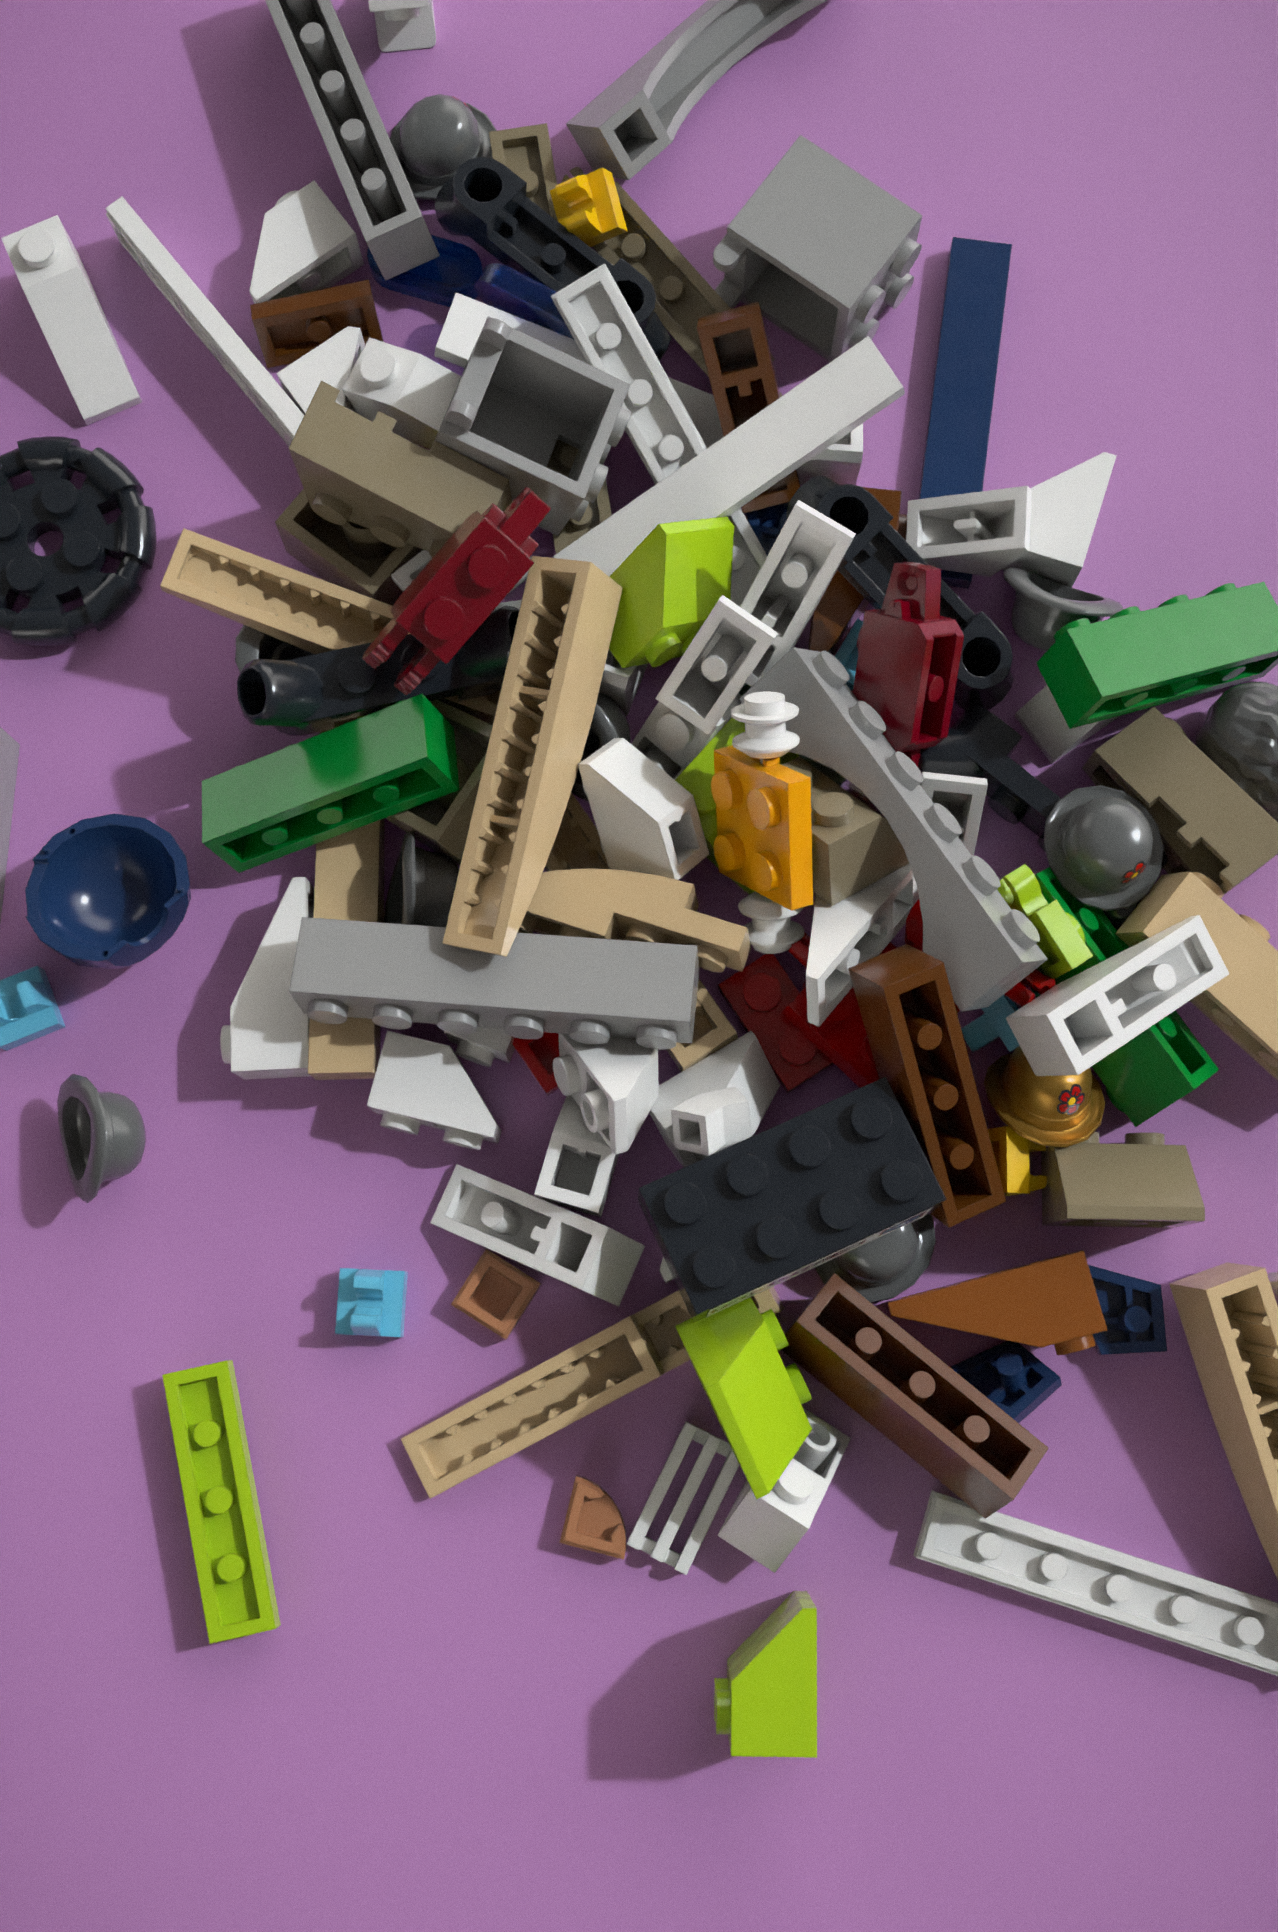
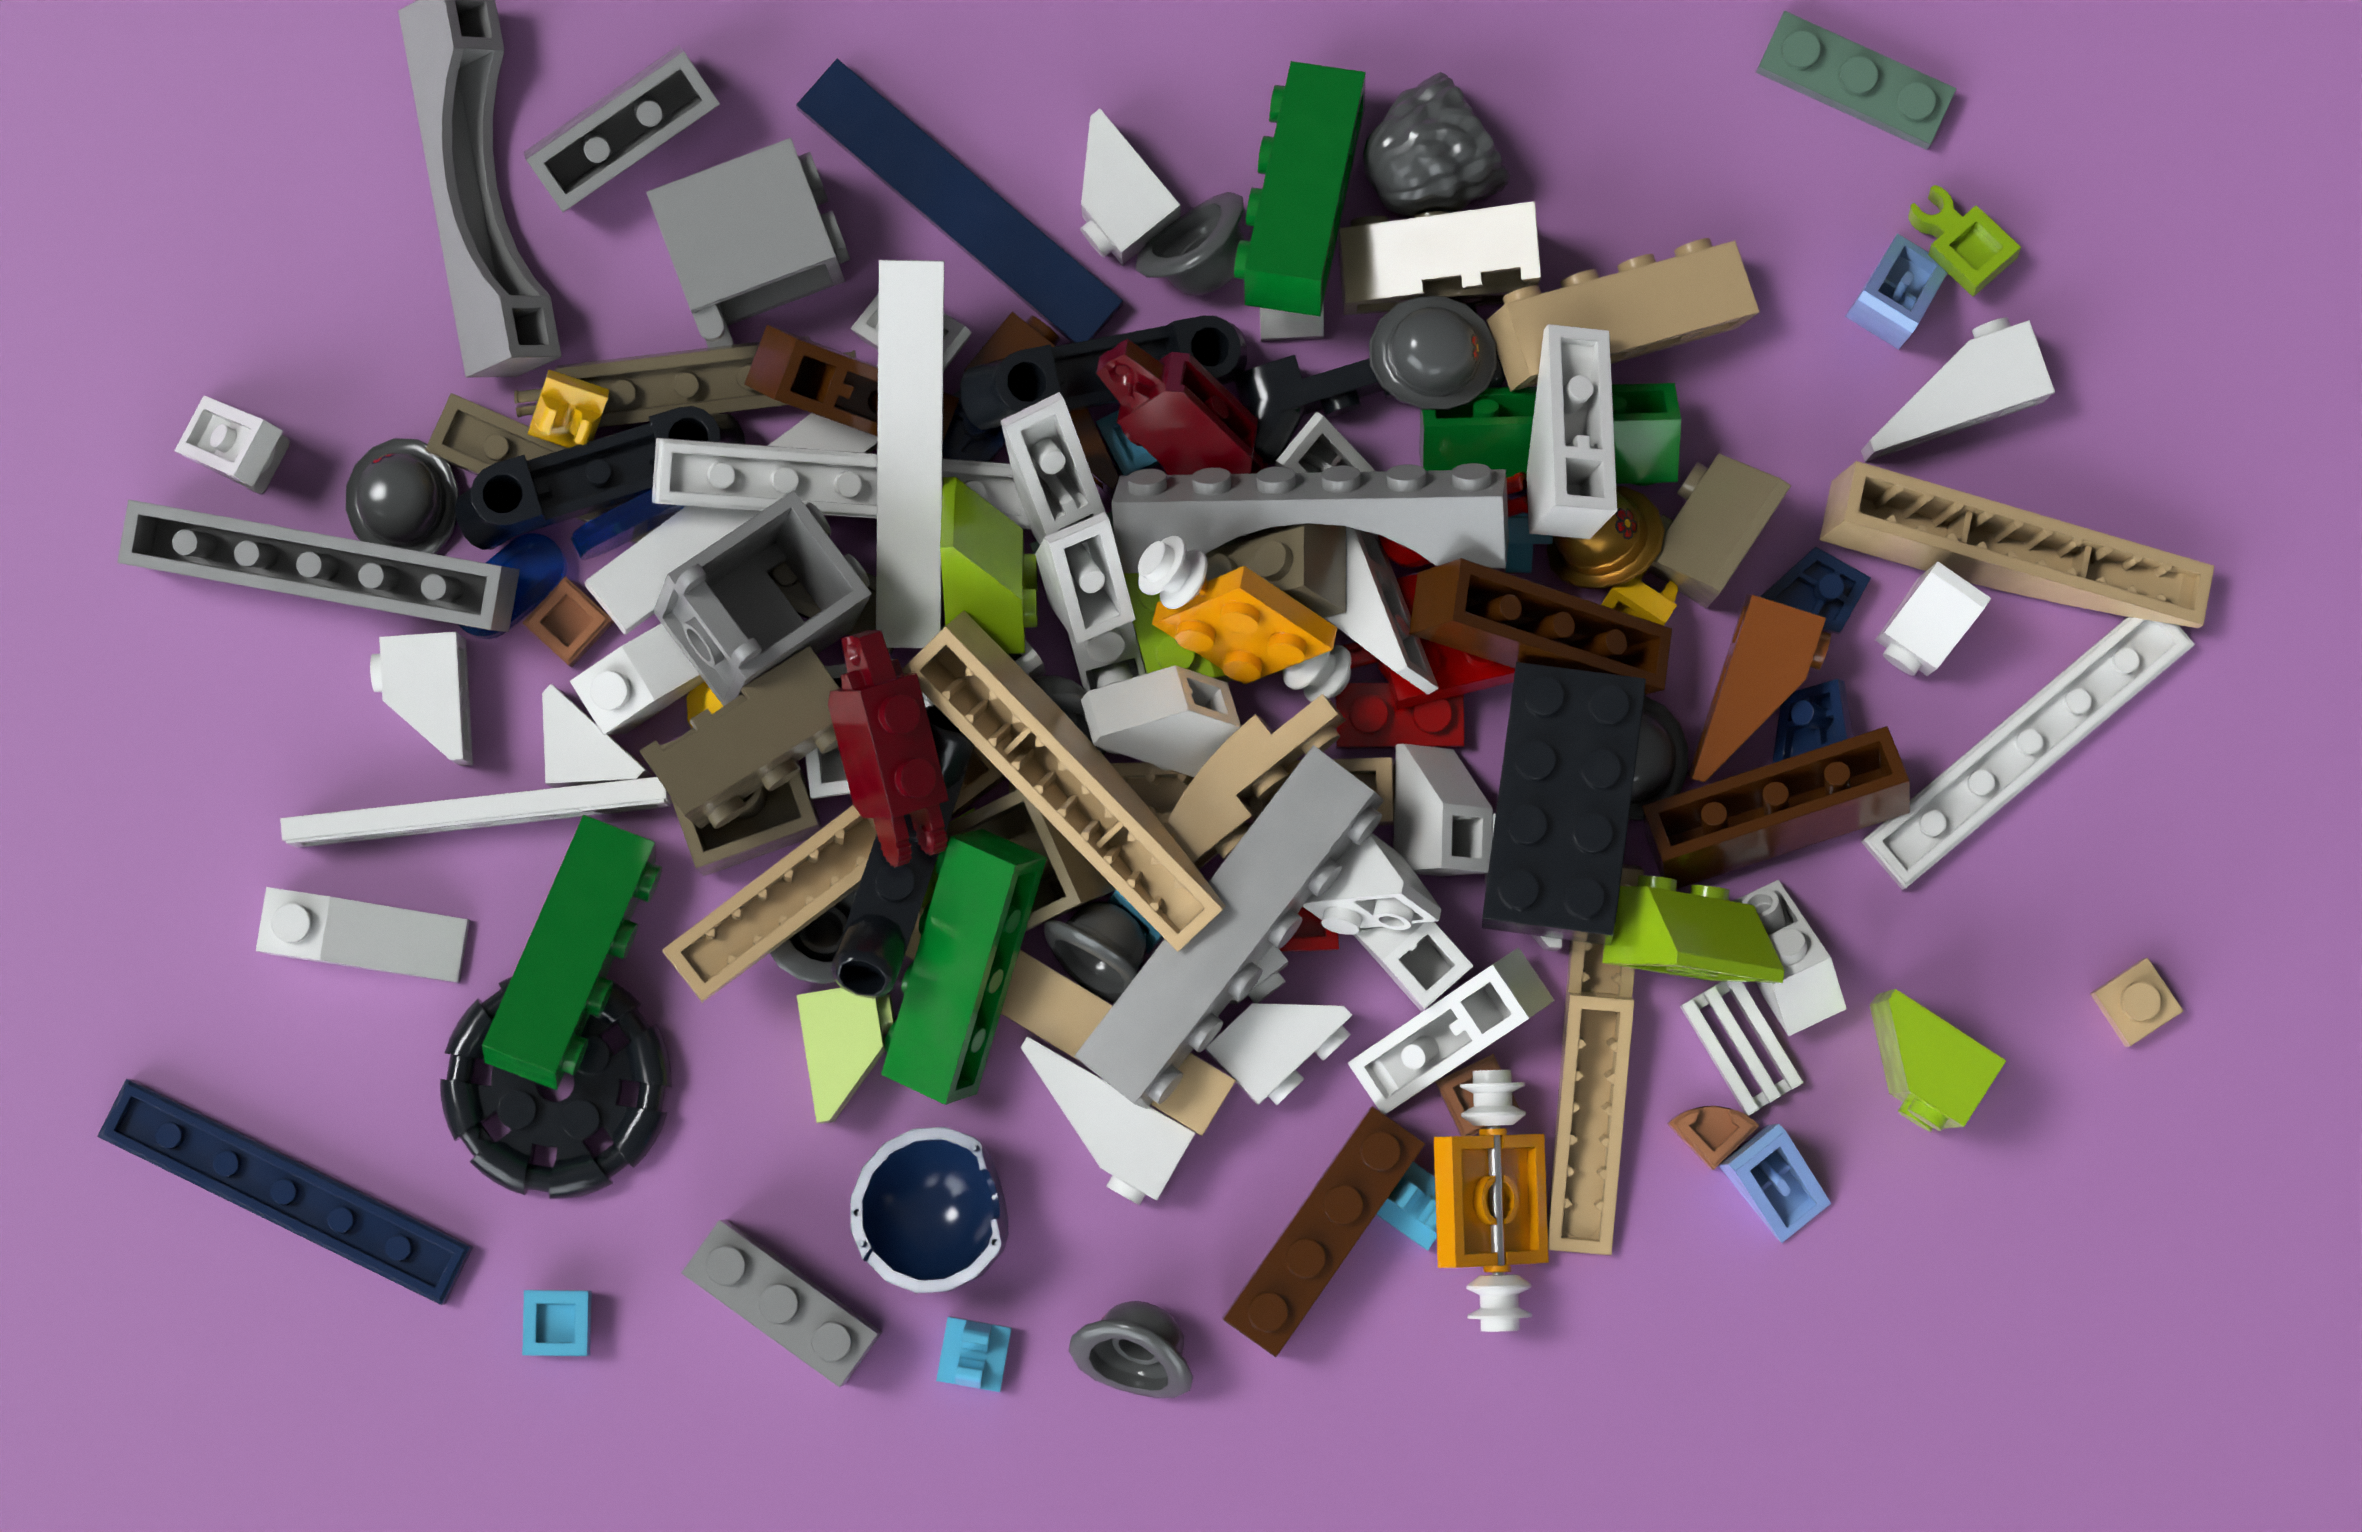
camera: 60 degrees left, 5 degrees up
(149, 476) = (571, 952): none -> green brick
(205, 737) = (841, 1044): none -> yellowish green slope
(221, 1501) = (1505, 1427): lime plate -> none
(292, 1231) = (1323, 1231): none -> reddish brown brick
(303, 321) = (509, 717): reddish brown plate -> none
(406, 1362) = (1492, 1200): none -> light orange plate
(420, 322) = (568, 622): none -> nougat tile
(583, 1606) = (1776, 1181): none -> light blue slope
(711, 1121) = (1461, 825): white piece -> none
(841, 111) = (621, 128): none -> light grey brick
(952, 1839) = (2136, 1002): none -> tan plate
(971, 530) = (1086, 279): white slope -> none
(1059, 932) = (1481, 444): lime plate -> none
(1169, 1428) = (1931, 620): none -> white slope

